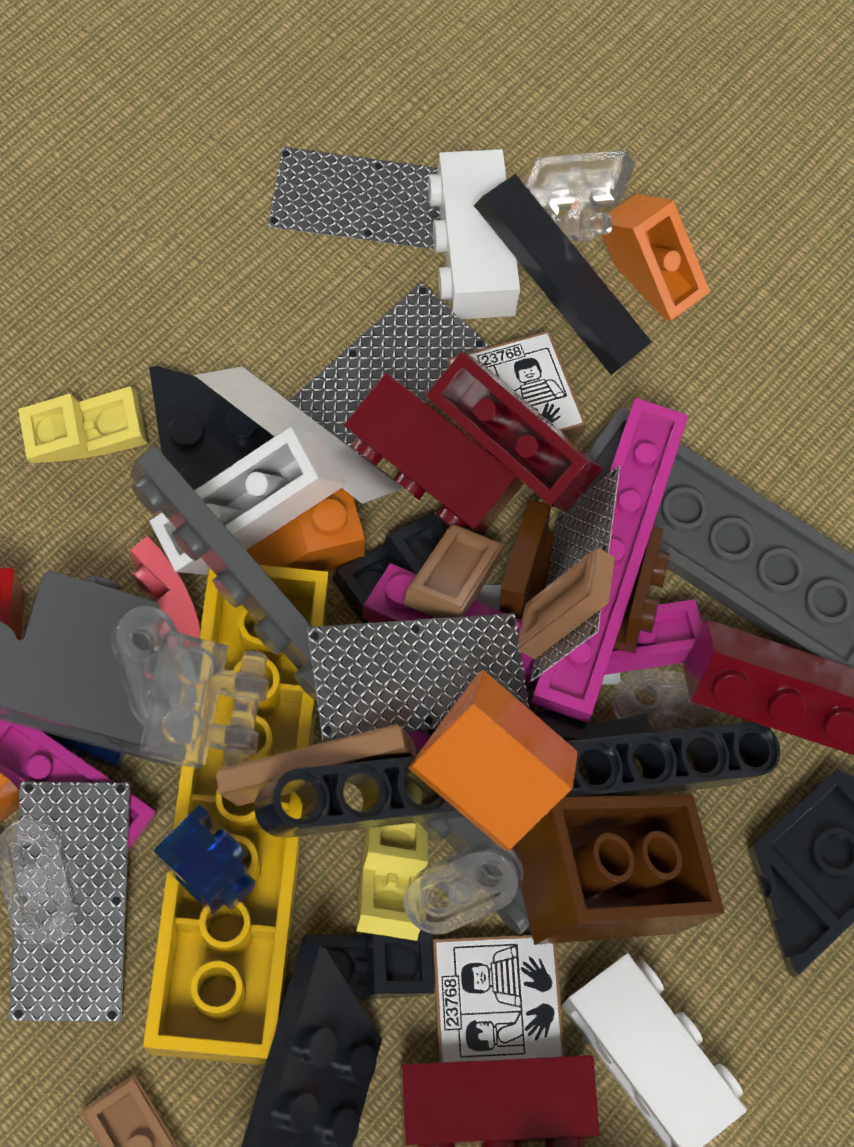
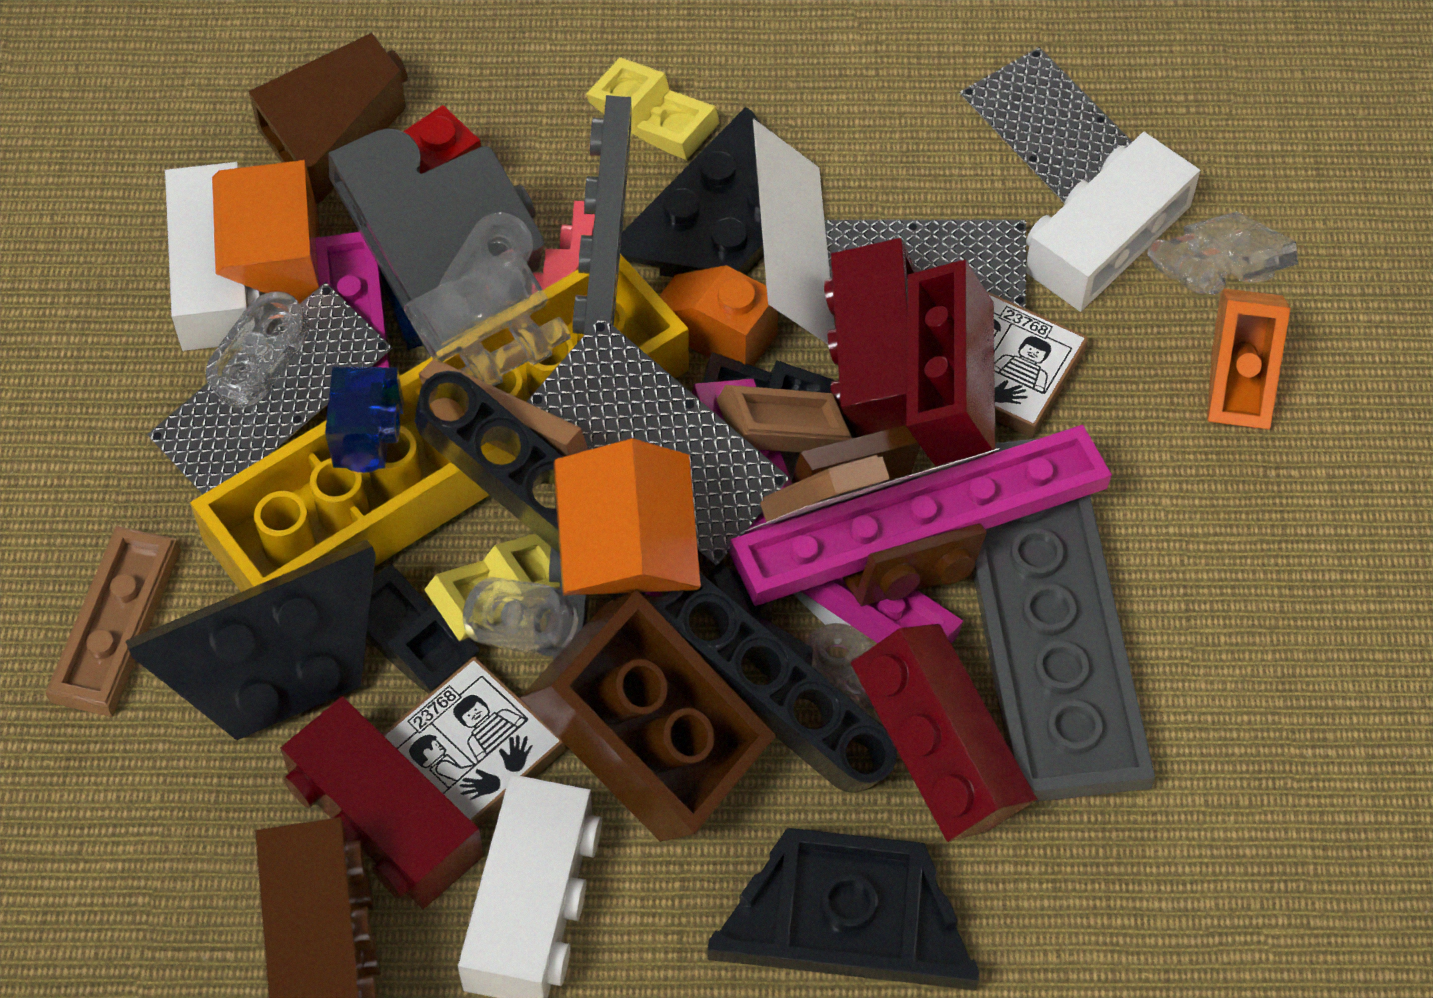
camera: 55 degrees right, 10 degrees down
(261, 492) = (697, 227): white brick -> none
(562, 273) = (1141, 299): black tile -> none

